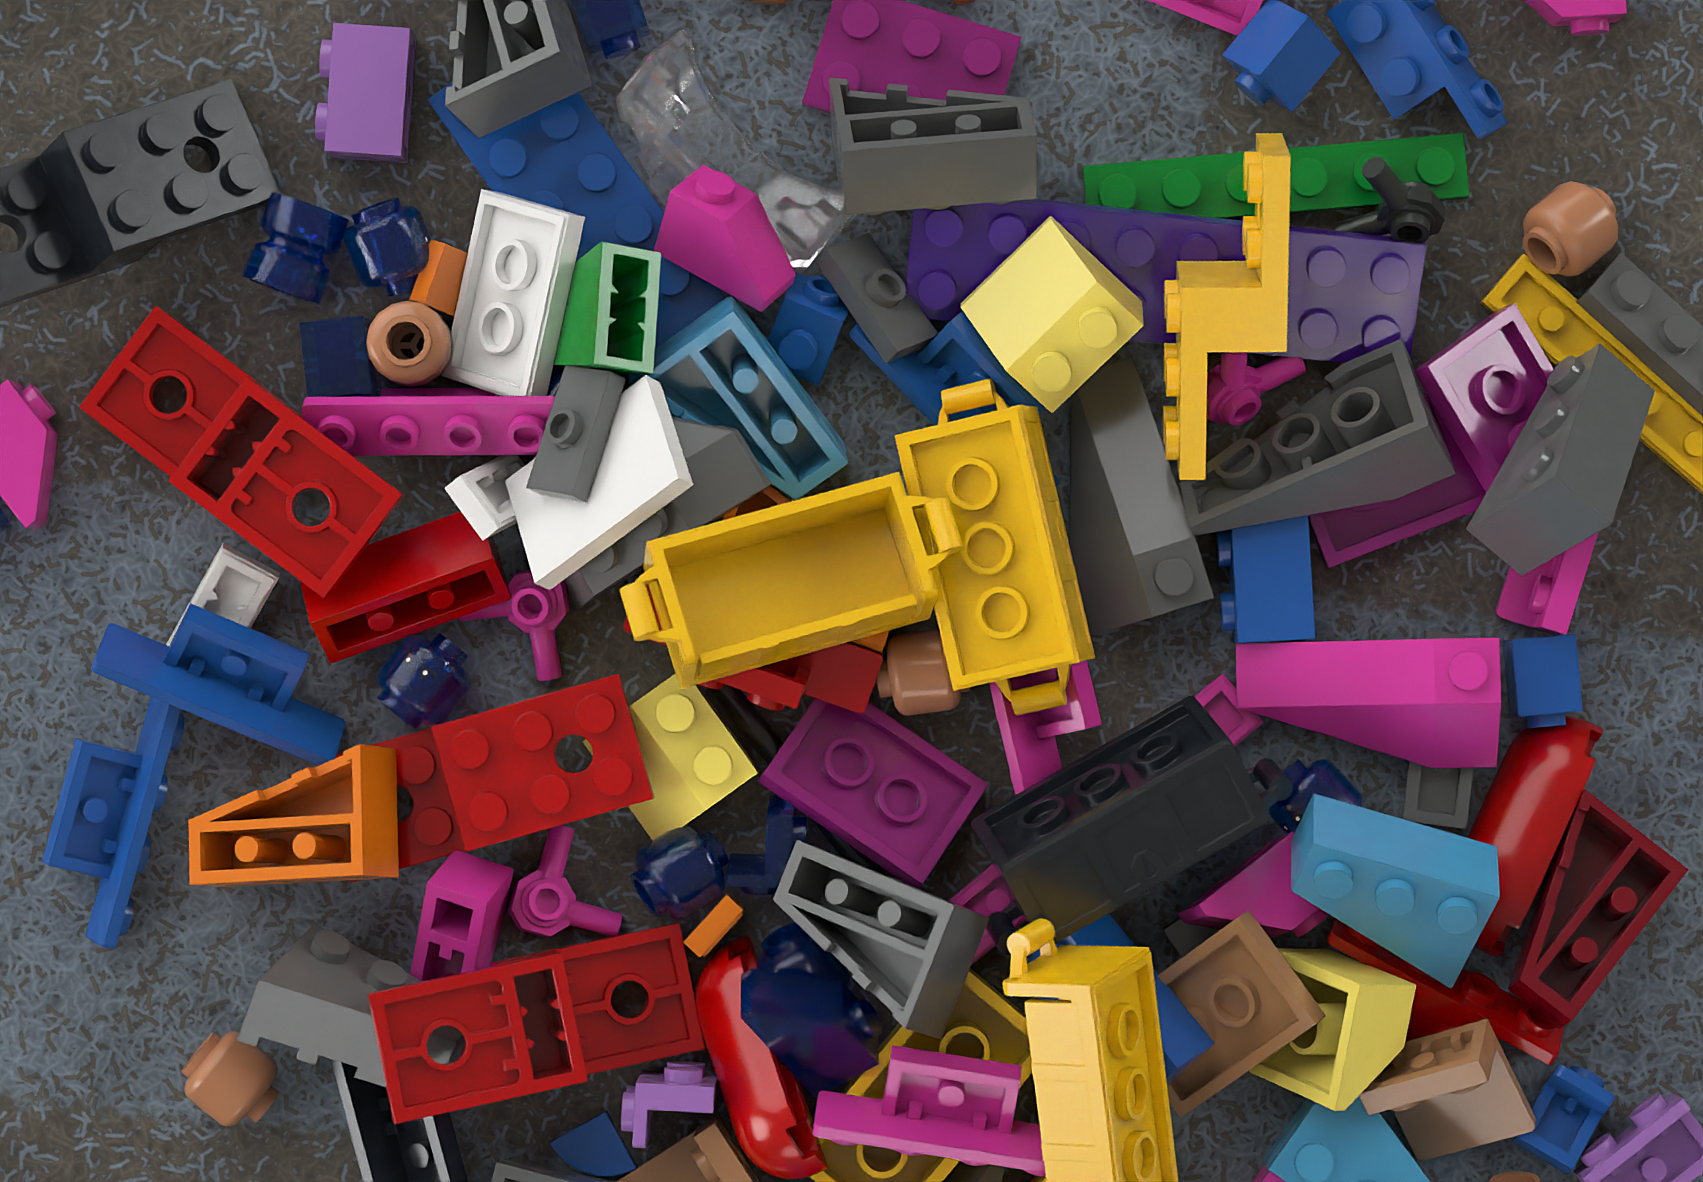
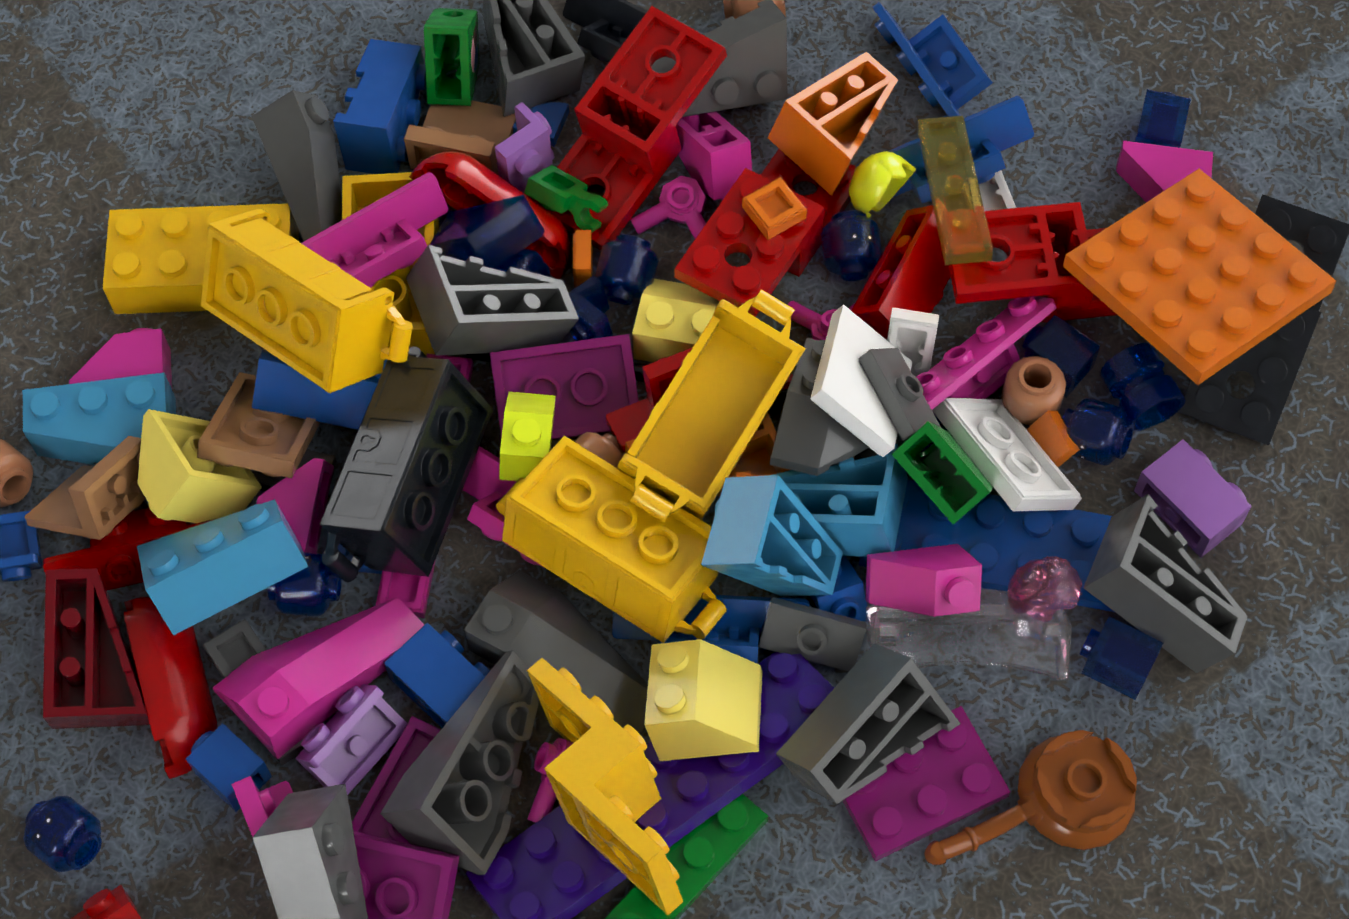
camera: 130 degrees right, 25 degrees down
(144, 282) = (1198, 275): none -> orange plate
(282, 615) = (954, 190): none -> clear yellow tile
(335, 720) = (878, 181): none -> neon yellow hair
(492, 764) = (774, 208): none -> orange tile
(624, 122) = (1044, 587): none -> clear pink hair
(673, 1015) = (563, 192): none -> green plate
(868, 387) = (770, 539): none -> dark azure wedge
(963, 755) = (525, 433): none -> neon yellow slope
(1406, 594) = (352, 738): none -> medium lavender bracket

